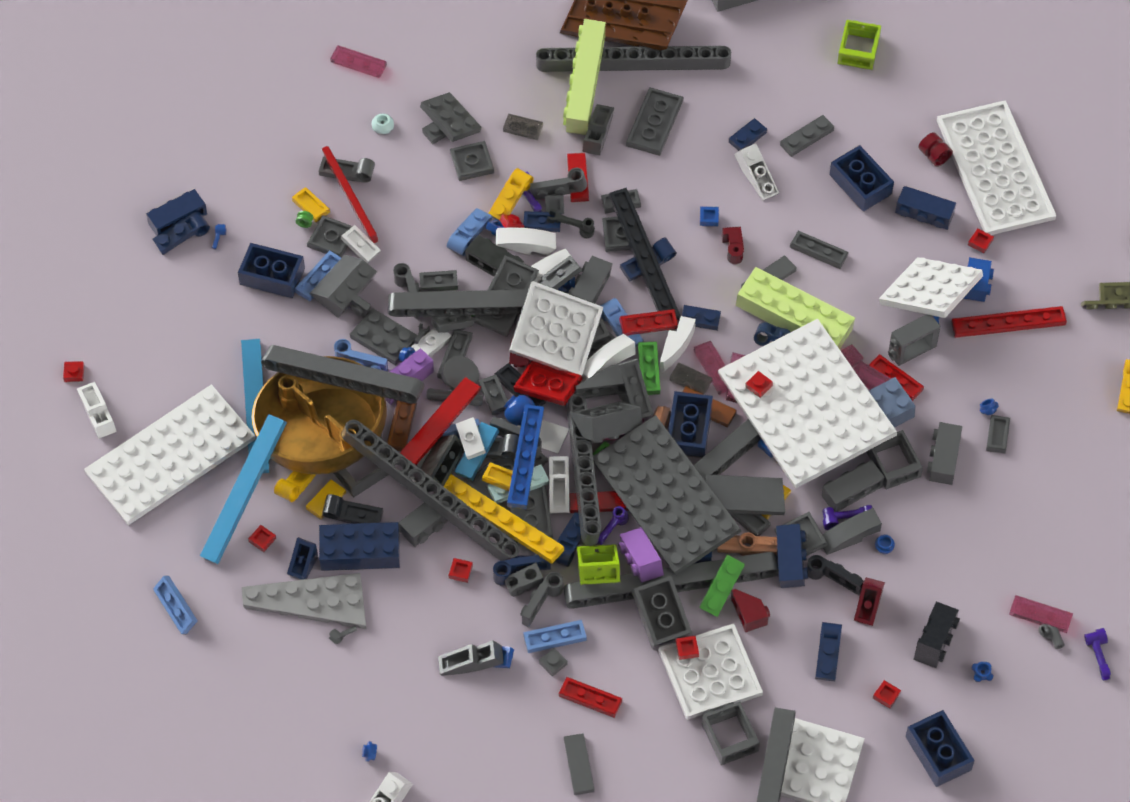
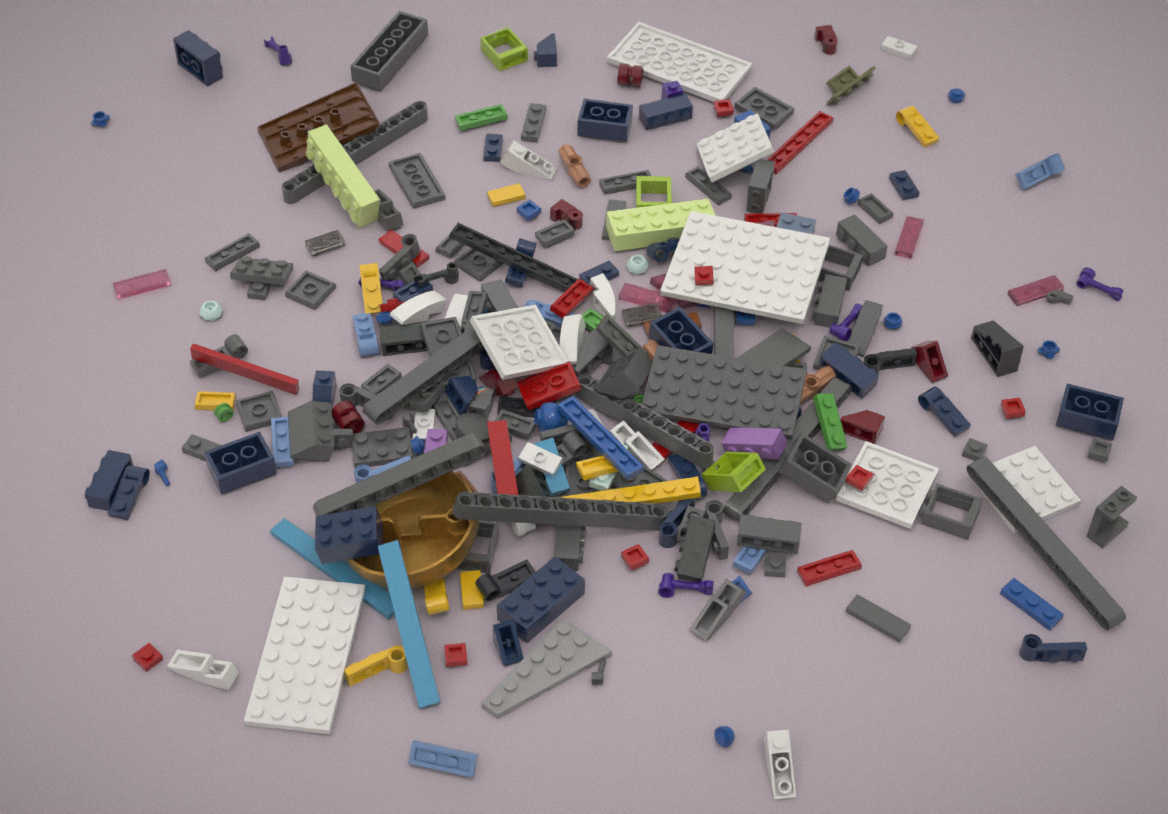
camera: 45 degrees left, 10 degrees down
(200, 499) = (377, 663): none -> yellow plate
(263, 235) = (197, 446): none -> dark grey plate
(265, 388) = (348, 535): none -> dark blue brick
(360, 244) = (289, 397): white plate -> none
(379, 292) = (347, 417): none -> dark red wheel
(388, 256) = (324, 387): none -> dark blue slope
(450, 82) = (232, 252): none -> dark grey tile
(462, 610) = (668, 585): none -> dark purple brick
(482, 339) = (461, 392): none -> dark blue slope
(490, 358) = (483, 401): none -> dark grey leg
(502, 600) = (695, 549): none -> pearl dark grey brick
(567, 633) = (769, 534): none -> dark grey brick
(706, 253) = (554, 233): none -> dark grey plate
(709, 188) = (506, 194): none -> yellow tile
(738, 337) = (637, 264): none -> light aqua plate
(767, 99) = (481, 117): none -> bright green plate
(794, 195) = (574, 165): none -> nougat piece
(814, 702) = (974, 449): none -> dark grey plate
(831, 268) = (653, 185): none -> lime window
(881, 314) = (713, 190): none -> dark grey tile
(893, 73) = (546, 52): none -> dark blue slope
(911, 785) = (1100, 450): none -> dark grey plate
(950, 191) = (671, 89): none -> dark purple brick
(993, 482) = (909, 237): none -> clear pink tile
(1016, 267) = (769, 108): none -> dark grey plate
(1050, 432) = (904, 185): none -> dark blue plate

